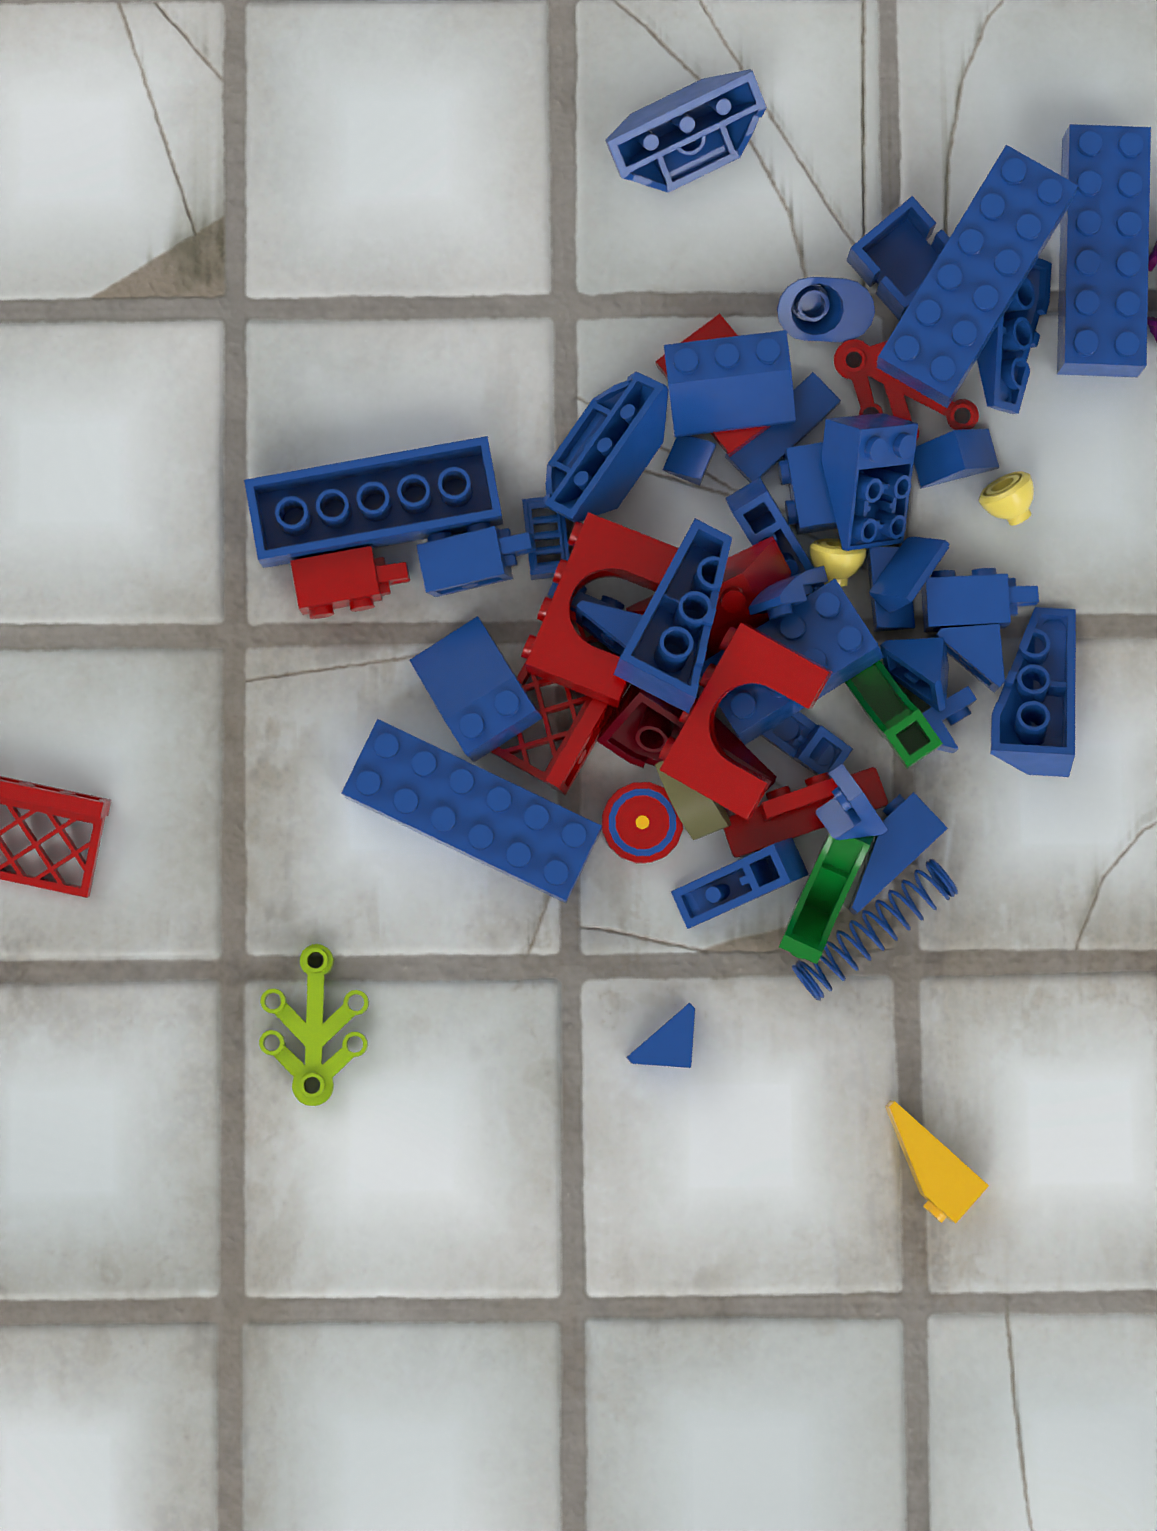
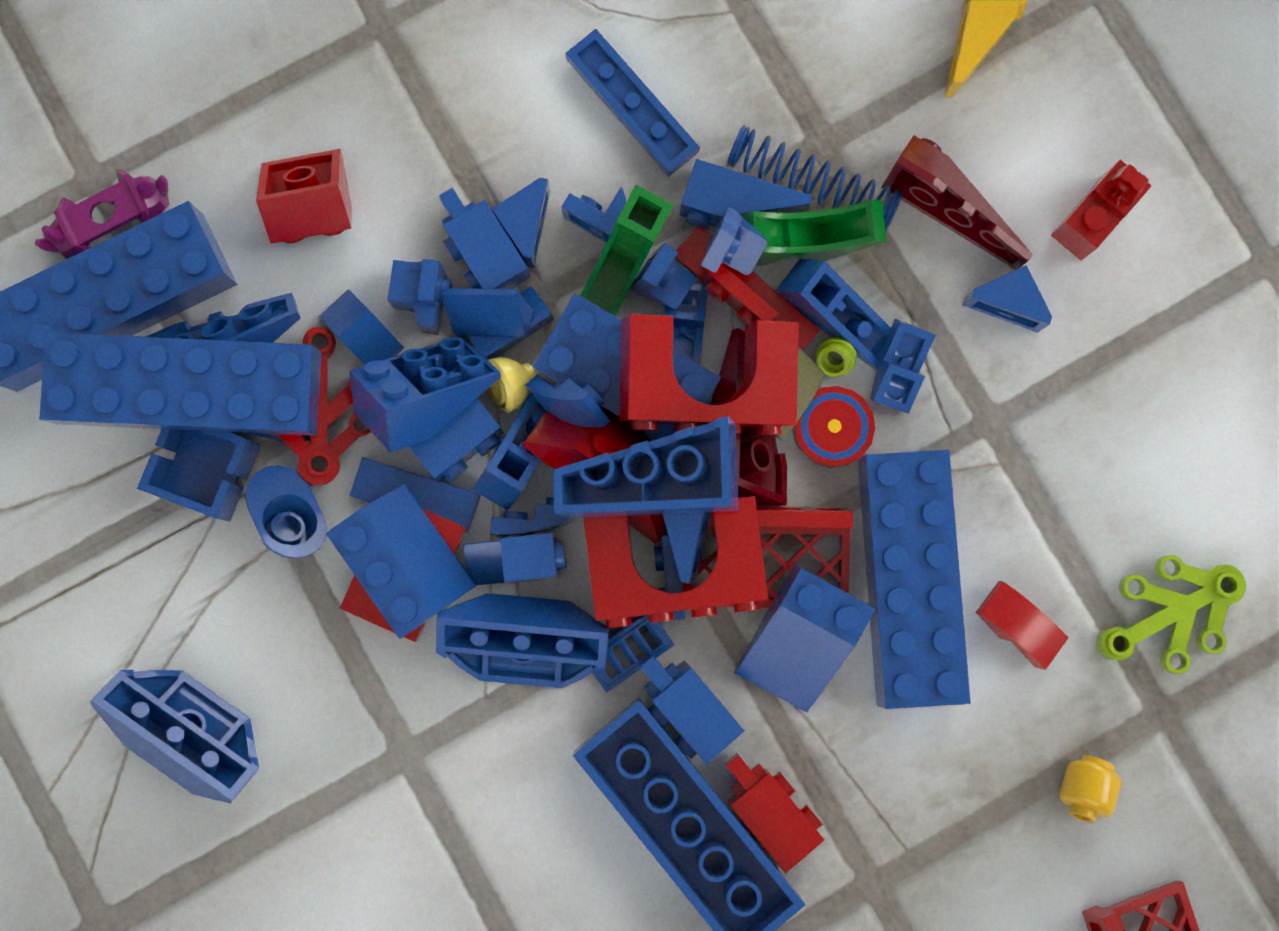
camera: 125 degrees left, 0 degrees up
(210, 861) = (1090, 788): none -> yellow head
(379, 884) = (1023, 624): none -> red slope
(663, 912) = (899, 366): none -> blue slope
(670, 493) = (532, 558): none -> blue brick
(702, 856) = (831, 366): none -> lime plate
(704, 1169) = (1101, 209): none -> red hinge
(709, 499) = (516, 523): none -> blue slope
(808, 1035) = (946, 195): none -> dark red wedge
(853, 741) = (663, 279): none -> blue slope
(919, 667) = (568, 257): blue slope -> none
(959, 525) = (419, 290): none -> blue brick
(1009, 497) = (370, 263): light yellow brick -> none
(1034, 806) = (632, 102): none -> blue plate
(1037, 703) = (544, 140): blue wedge -> none
(1103, 471) = (304, 197): none -> red slope

